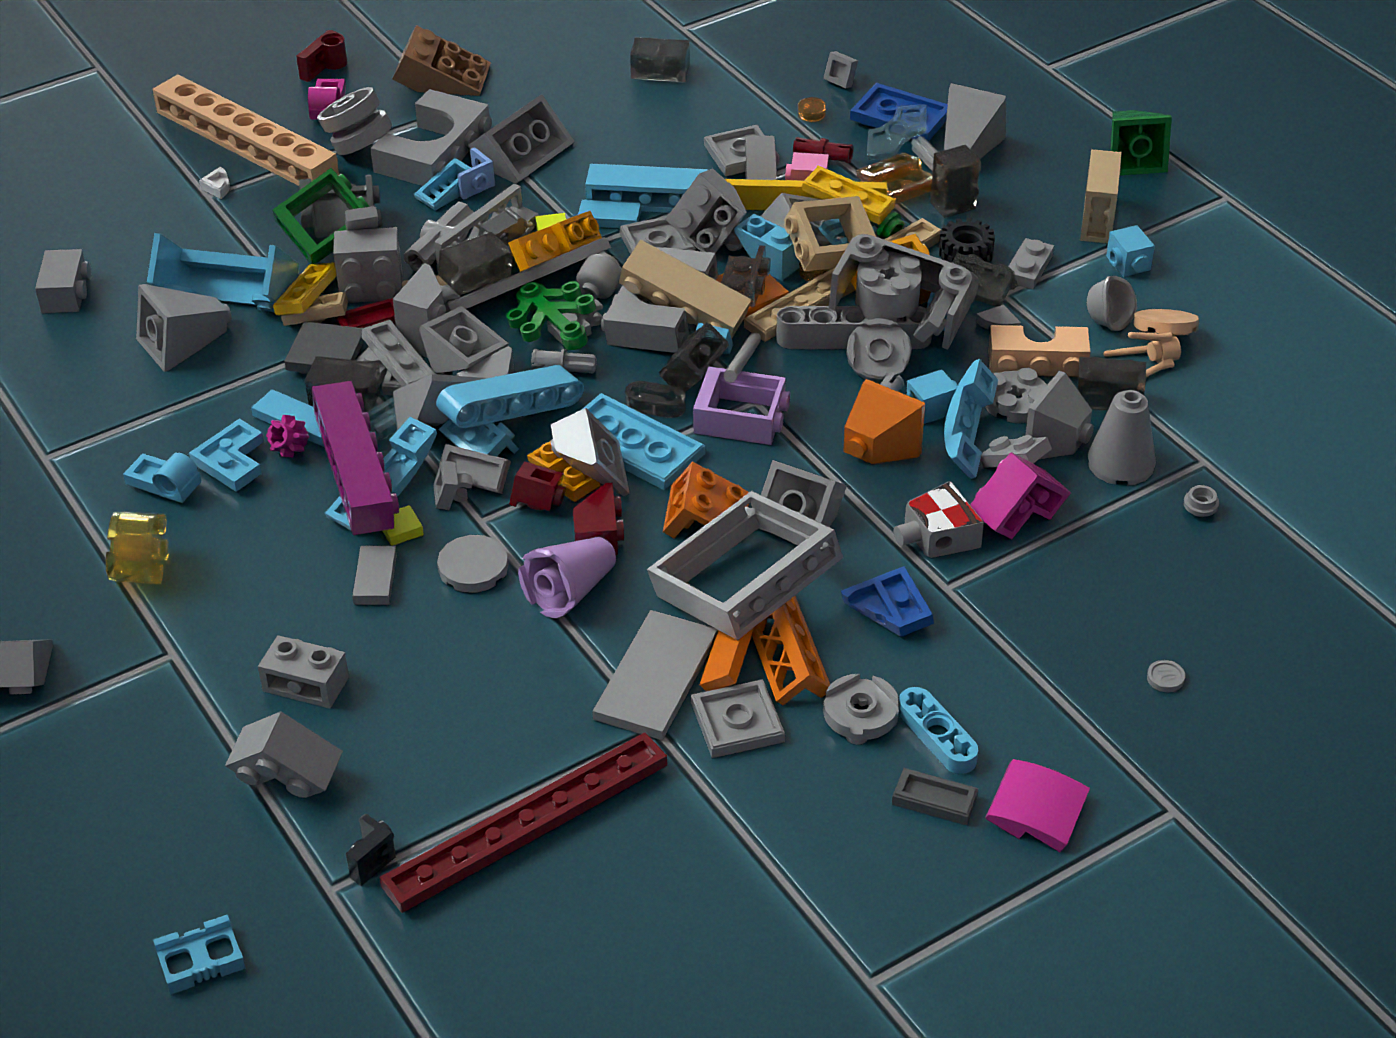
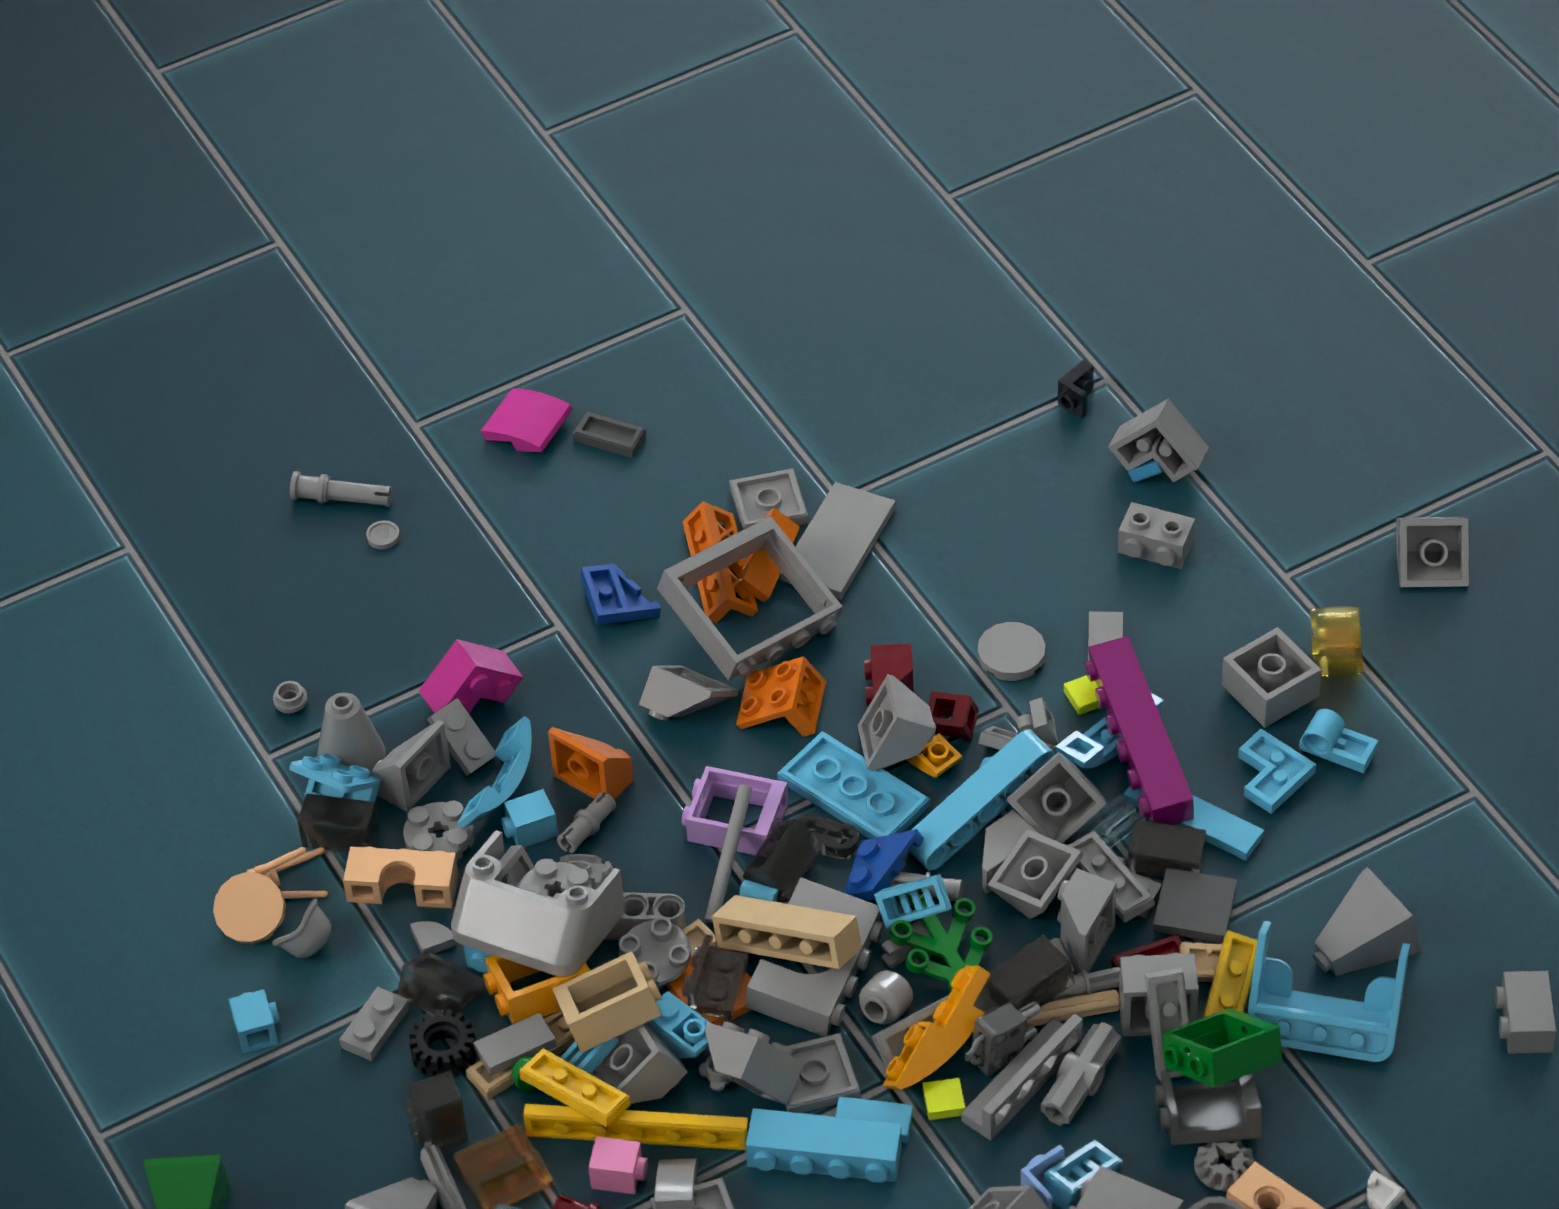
camera: 175 degrees left, 5 degrees up
(195, 944) = (1197, 320): medium azure piece -> none
(213, 518) = (1271, 677): none -> light grey brick
(287, 435) = (1215, 781): dark pink gear -> none
(522, 822) = (948, 413): dark red plate -> none
(564, 573) = (918, 610): lavender cone -> none
(575, 309) = (889, 908): none -> medium azure slope
(605, 366) = (879, 862): none -> blue wing
(798, 290) = (661, 946): none -> light grey dish
(855, 723) = (659, 515): light grey plate -> none
(920, 226) = (512, 1043): none -> light grey tile
(939, 745) = (596, 497): medium azure beam -> none
(940, 523) = (554, 670): torso -> none
(1101, 196) = (265, 1082): tan window -> none
(1119, 372) = (335, 779): none -> medium azure bracket
(1249, 712) = (324, 488): none -> light grey pin

